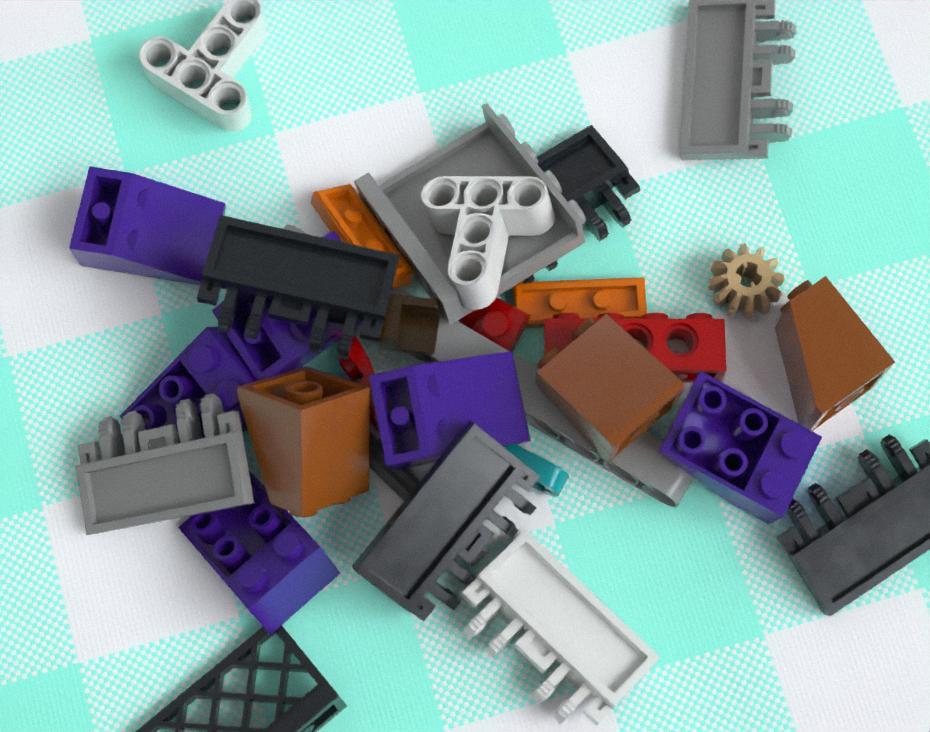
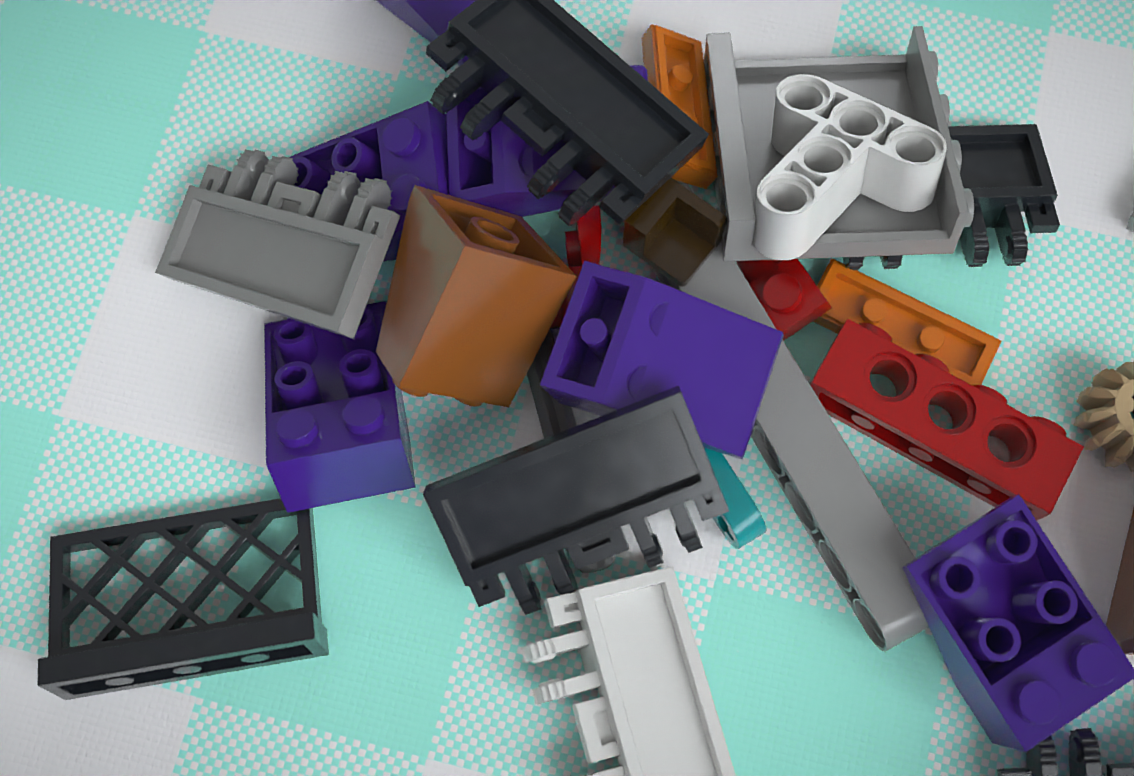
camera: 30 degrees right, 0 degrees up
(608, 386) = (887, 445): dark orange slope -> none

